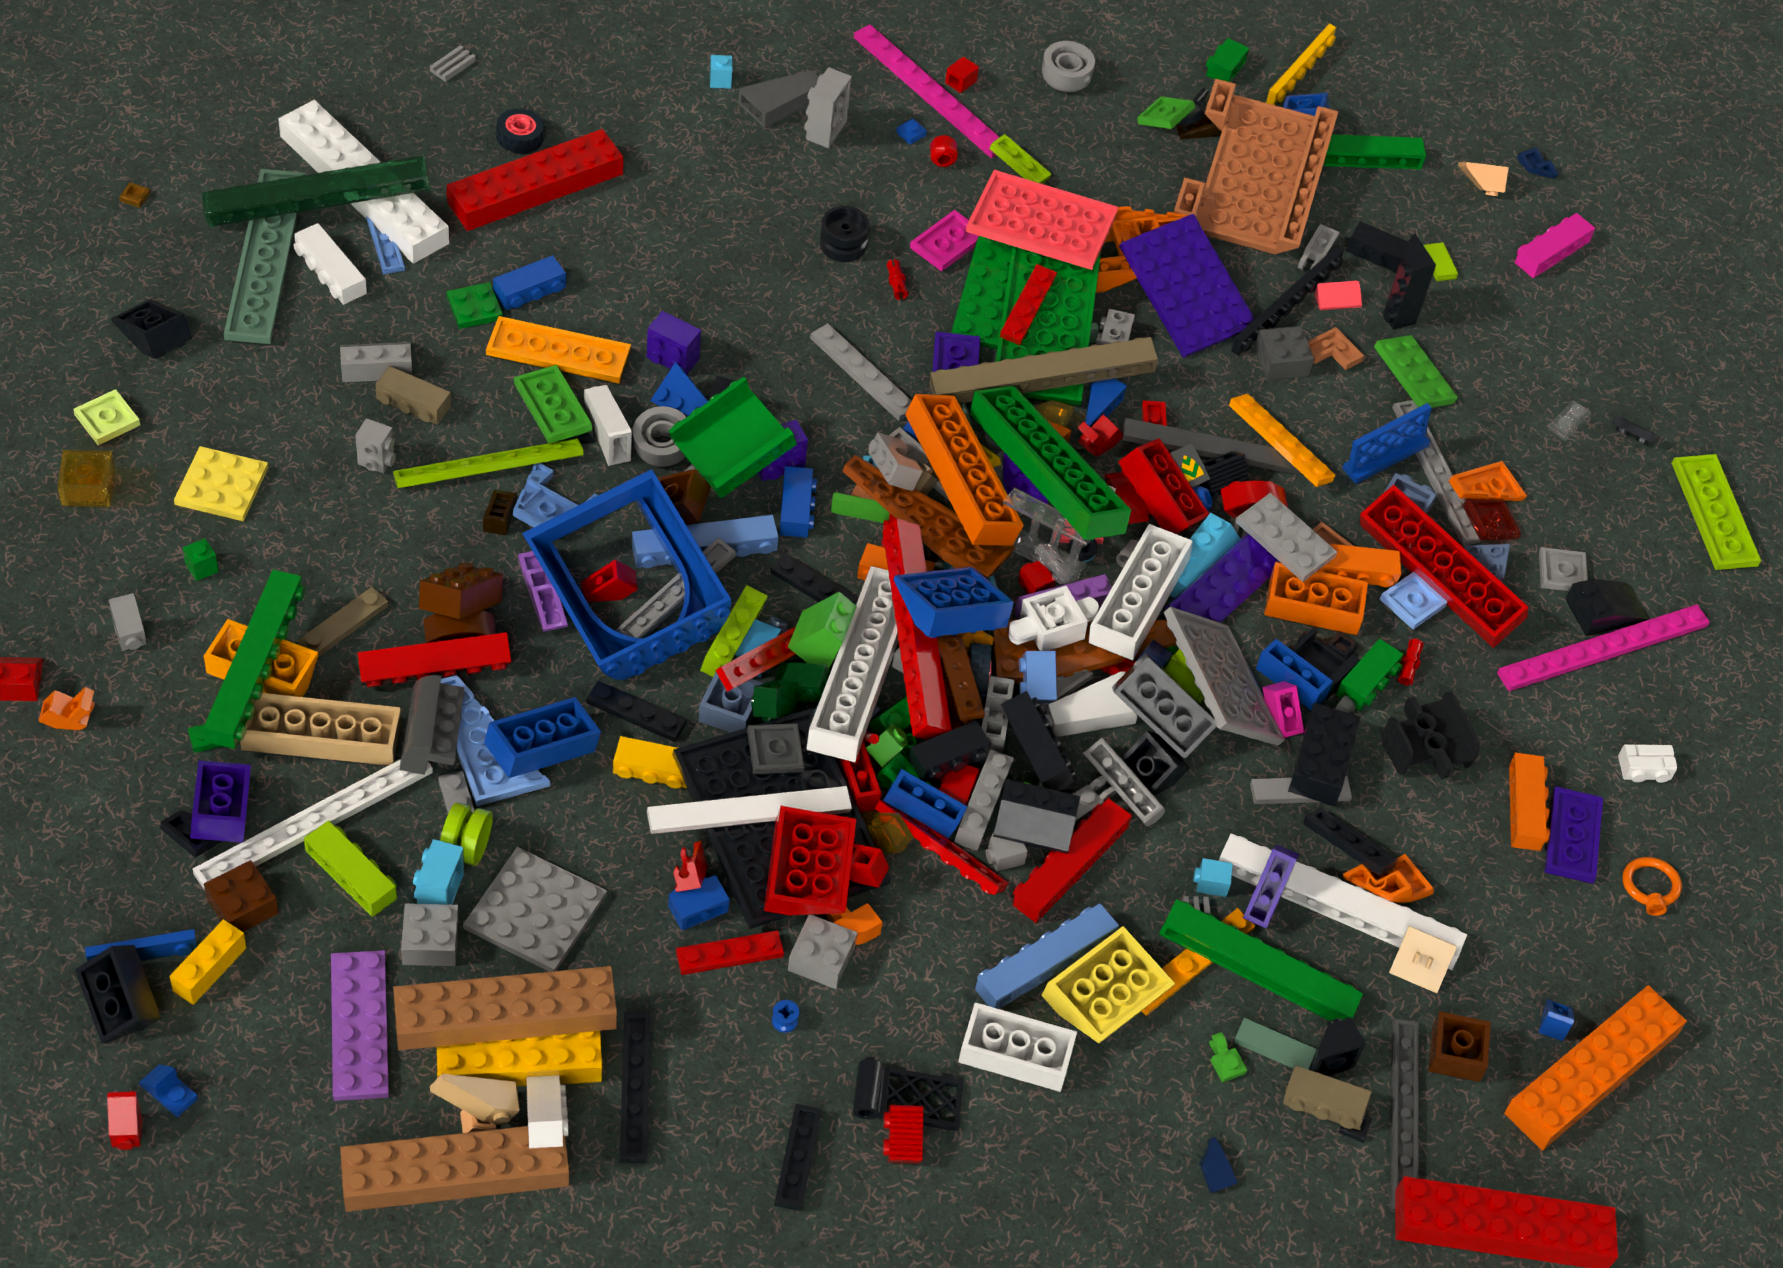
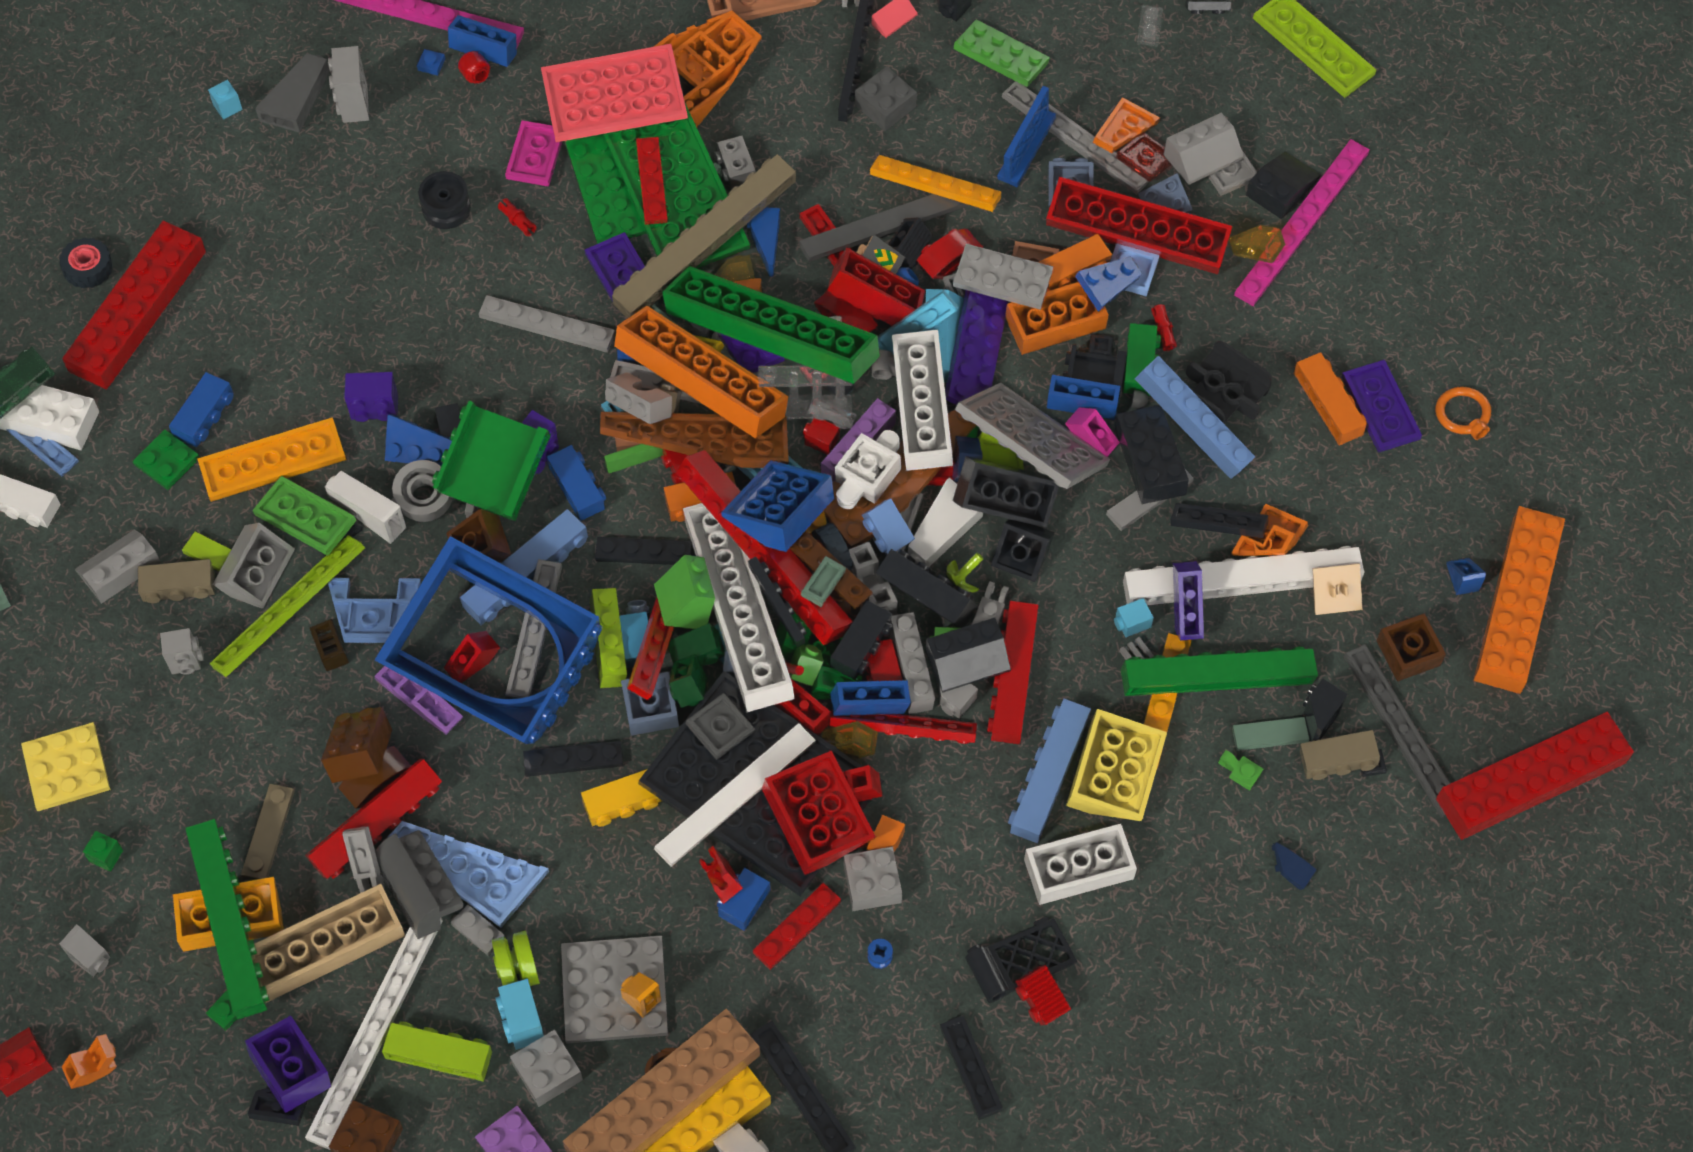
camera: 25 degrees left, 10 degrees up
(401, 680) = (362, 857): none -> light grey hinge
(460, 393) = (203, 548): none -> lime tile
(484, 419) = (254, 565): none -> light grey slope
(542, 737) = (518, 835): blue brick -> none
(551, 921) = (641, 993): none -> light orange slope
(895, 685) = (773, 592): none -> black plate
(946, 680) = (823, 581): none -> sand green tile
(971, 139) = (493, 43): none -> blue brick
(1019, 160) = (547, 39): lime plate -> none
(1077, 753) = (958, 576): none -> lime plant
(1100, 436) = (786, 268): red brick -> none
(1125, 782) = (1014, 578): light grey brick -> none
(1187, 285) = (768, 81): dark purple plate -> none
(1195, 528) = (920, 319): none -> medium azure tile
(1335, 344) = (923, 65): nougat plate -> none
(1380, 591) = (1108, 280): none -> wing
(1384, 742) = (1194, 417): none -> medium blue brick
(1547, 639) = (1258, 243): none -> clear yellow slope
(1548, 537) = (1203, 148): none -> light grey slope
(1647, 762) = (1398, 307): white brick -> none

